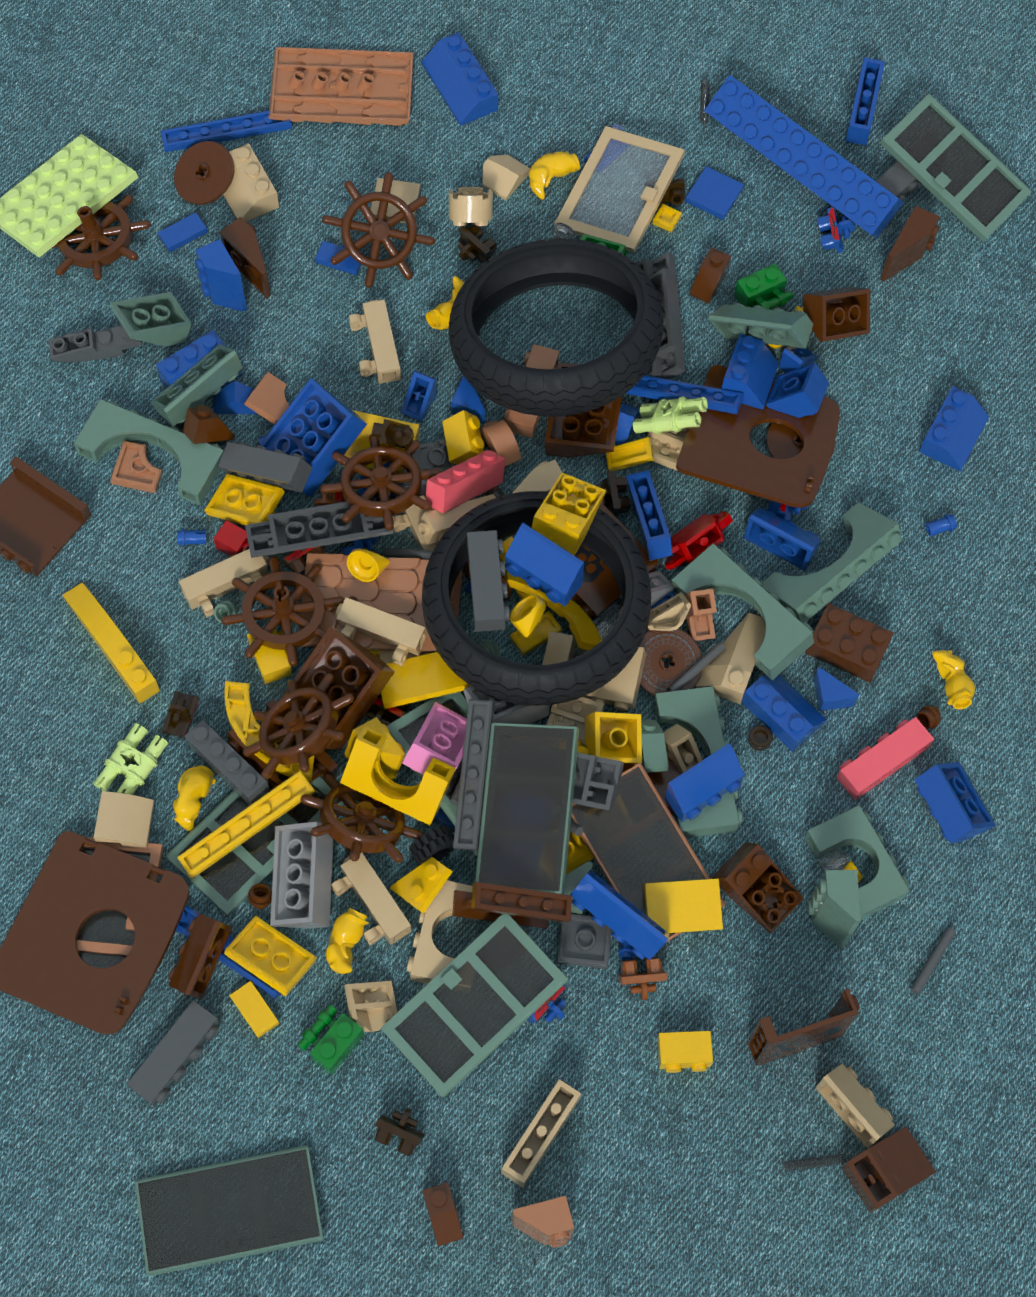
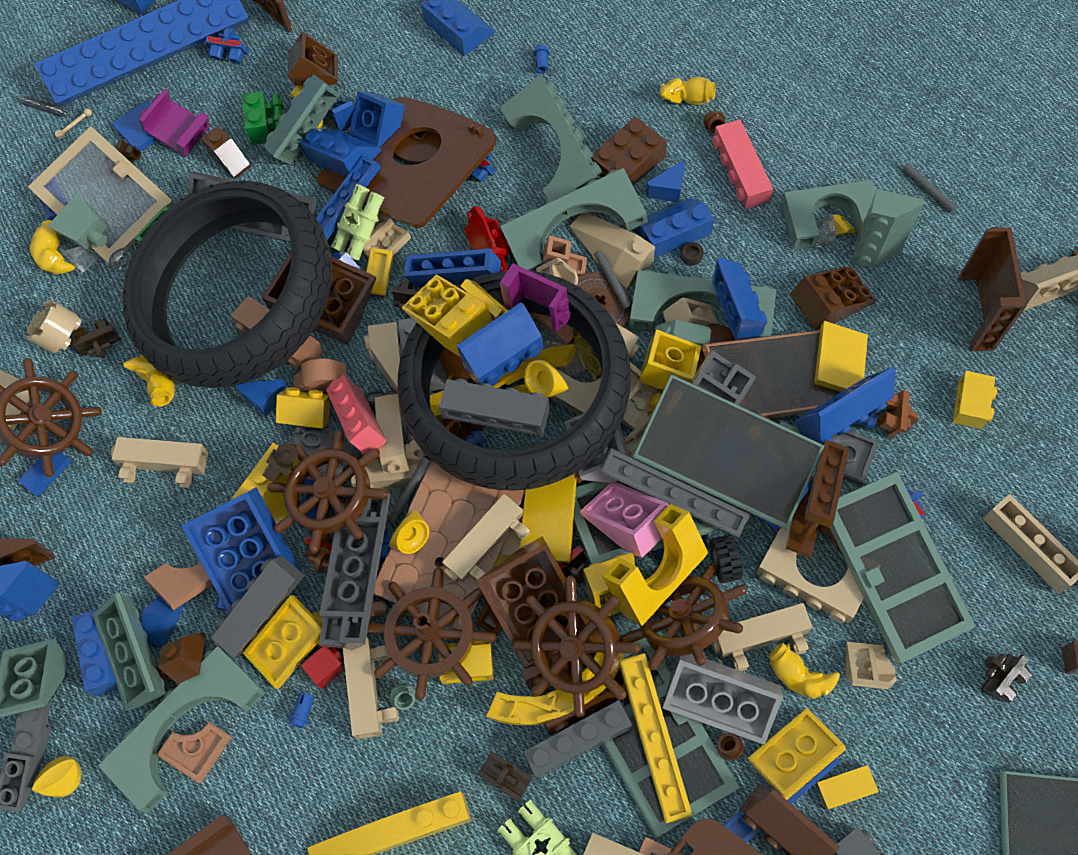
camera: 65 degrees left, 0 degrees up
(85, 376) = (58, 777): none -> yellow piece
(192, 786) = (592, 785): yellow animal -> none
(335, 1044) = (905, 712): green brick -> none
(419, 396) = (237, 437): blue slope -> none
(422, 884) = (763, 580): yellow wing -> none
(503, 175) = (29, 293): tan slope -> none
(553, 199) = (80, 258): none -> clear slope
(580, 184) = (80, 224): none -> sand green torso
(592, 538) = (478, 292): none -> yellow tile
(607, 560) = (524, 283): none -> magenta panel
(667, 218) = (150, 169): yellow tile -> none
(680, 128) = (61, 133): none -> tan hinge
(724, 218) = (173, 124): none -> magenta panel
(782, 538) = (511, 175): blue slope -> none
(954, 802) = (797, 128): blue slope -> none

